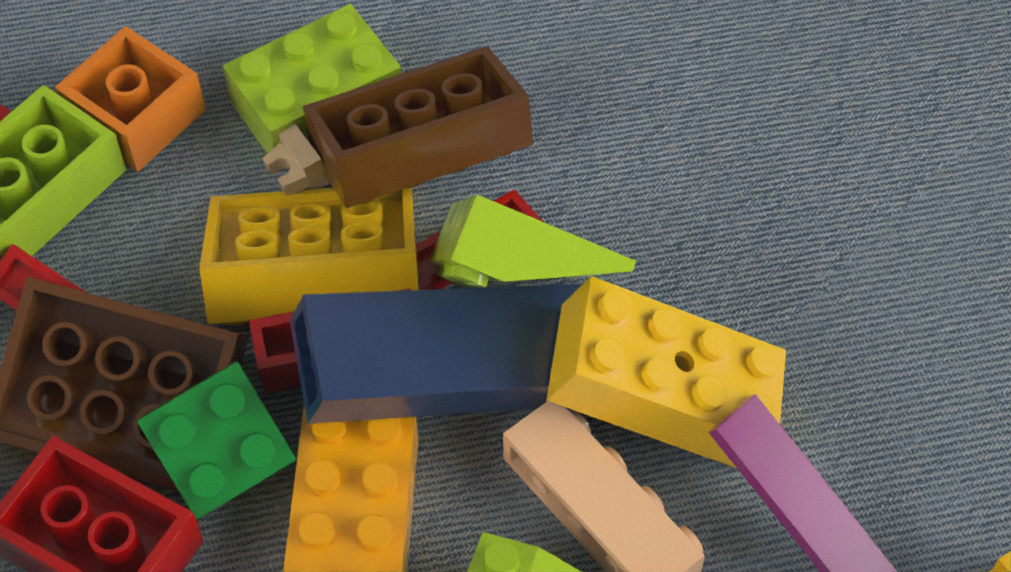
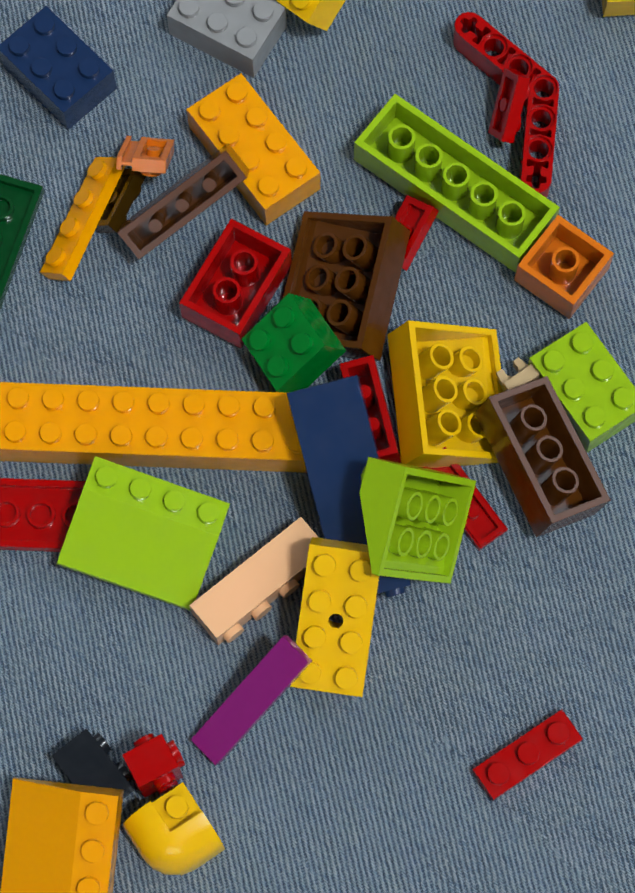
camera: 90 degrees right, 15 degrees up
(836, 176) = (527, 755): none -> red plate

